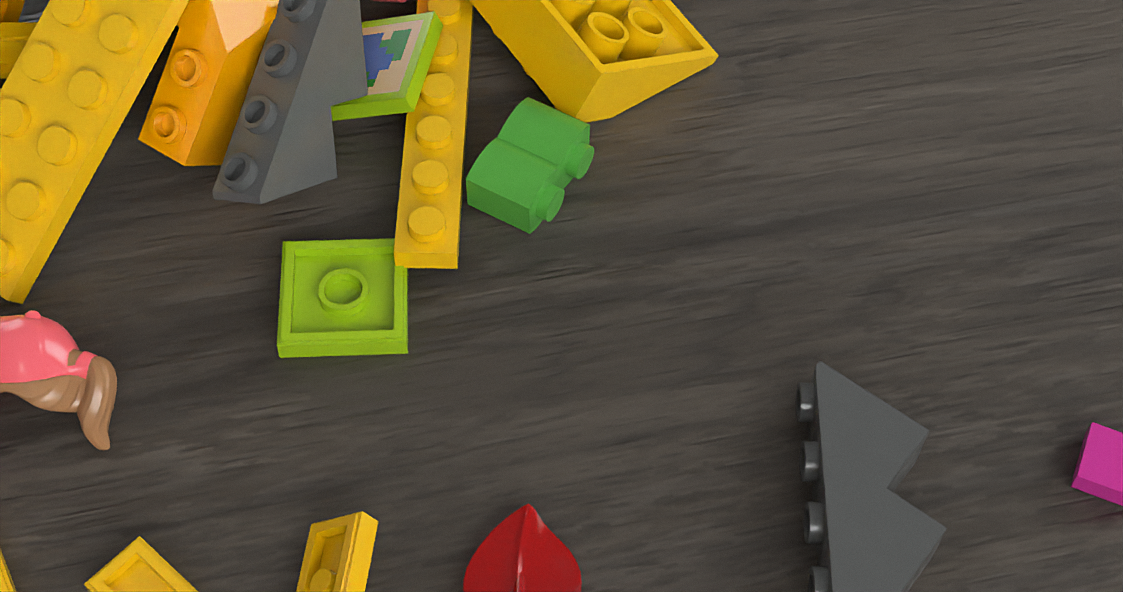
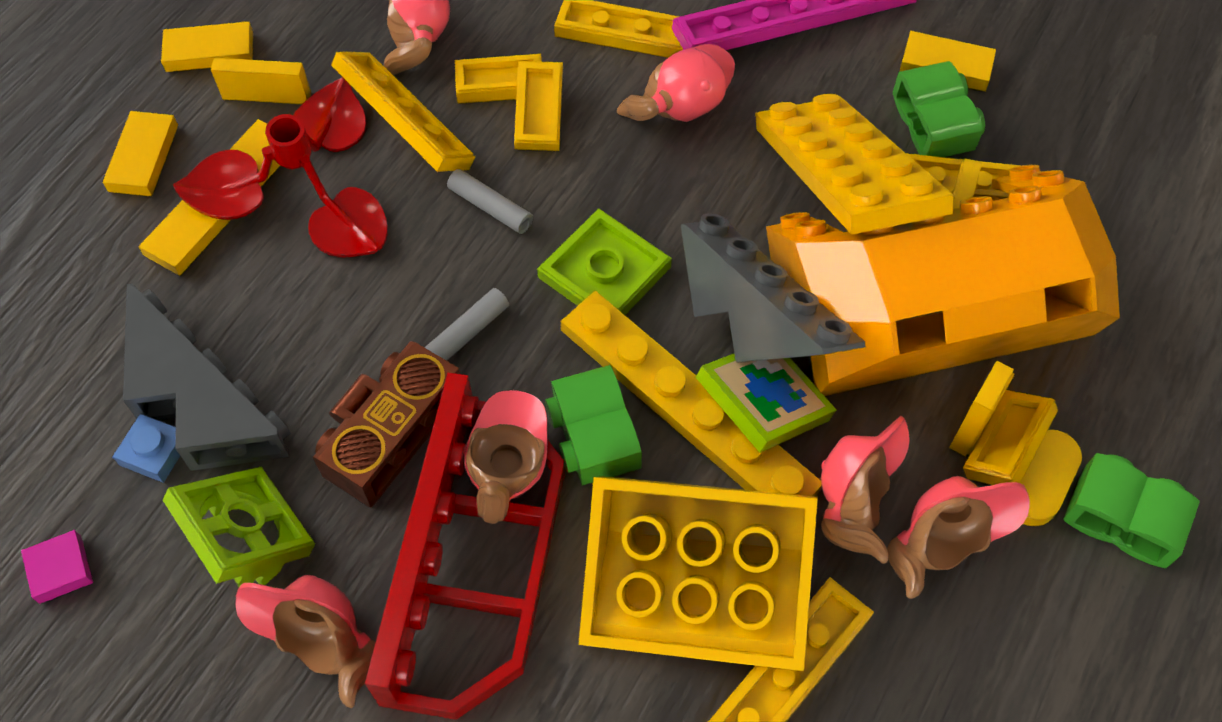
camera: 135 degrees right, 5 degrees up
(176, 512) = (538, 106): none -> yellow tile
(359, 455) = (490, 201): none -> light grey piece
(533, 352) = (469, 324): none -> light grey piece
(641, 174) = (506, 451): none -> medium nougat hair
(699, 316) = (382, 423): none -> copper piece
(743, 188) = (421, 557): none -> red plate
(909, 204) = (312, 623): none -> medium nougat hair
(913, 294) = (247, 491): none -> lime piece
(948, 499) = (148, 448): none -> medium blue plate

